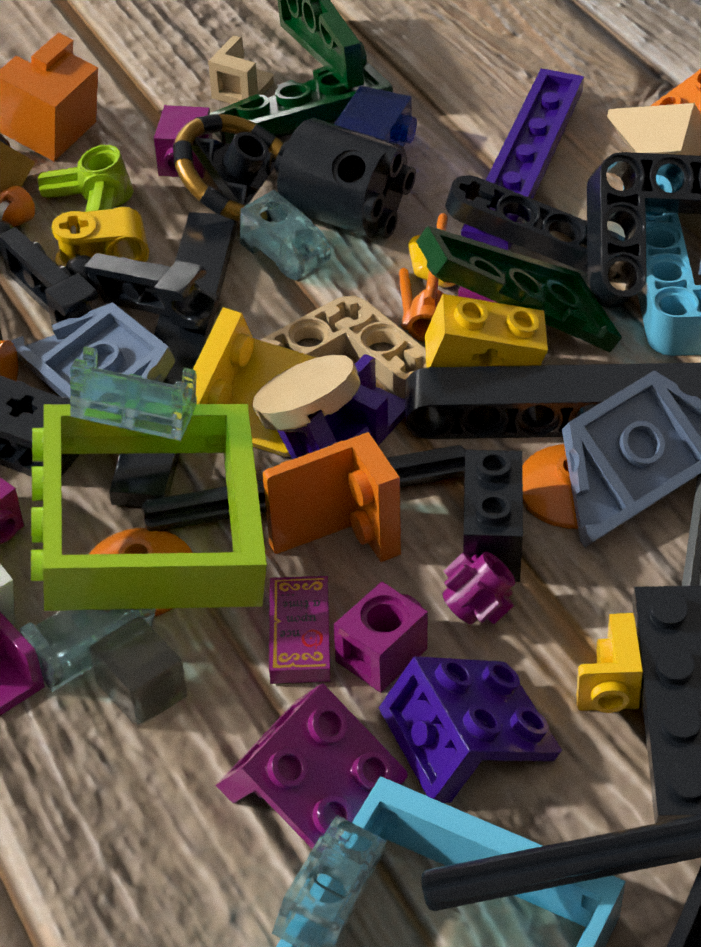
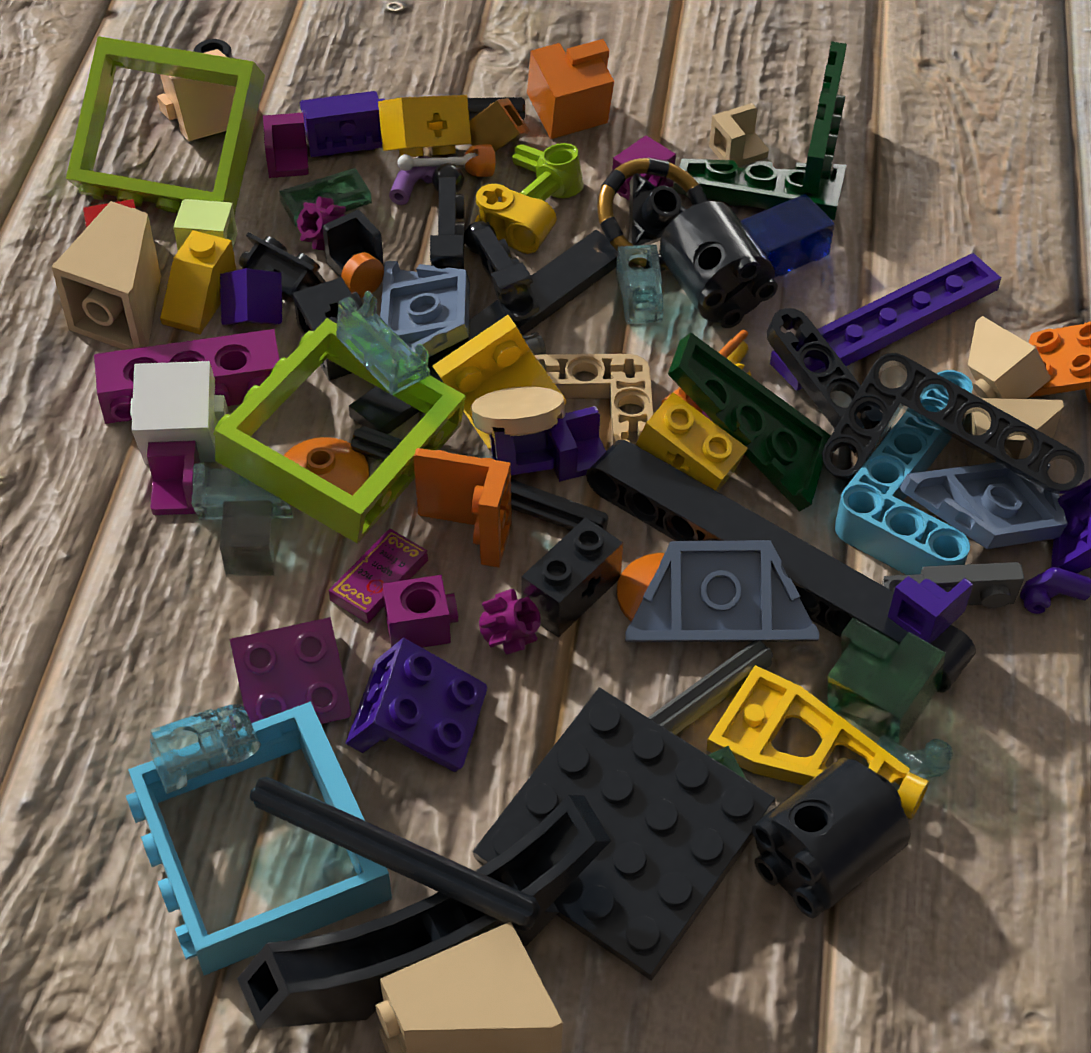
camera: 35 degrees right, 5 degrees up
(617, 675) = (530, 745): yellow bracket -> none

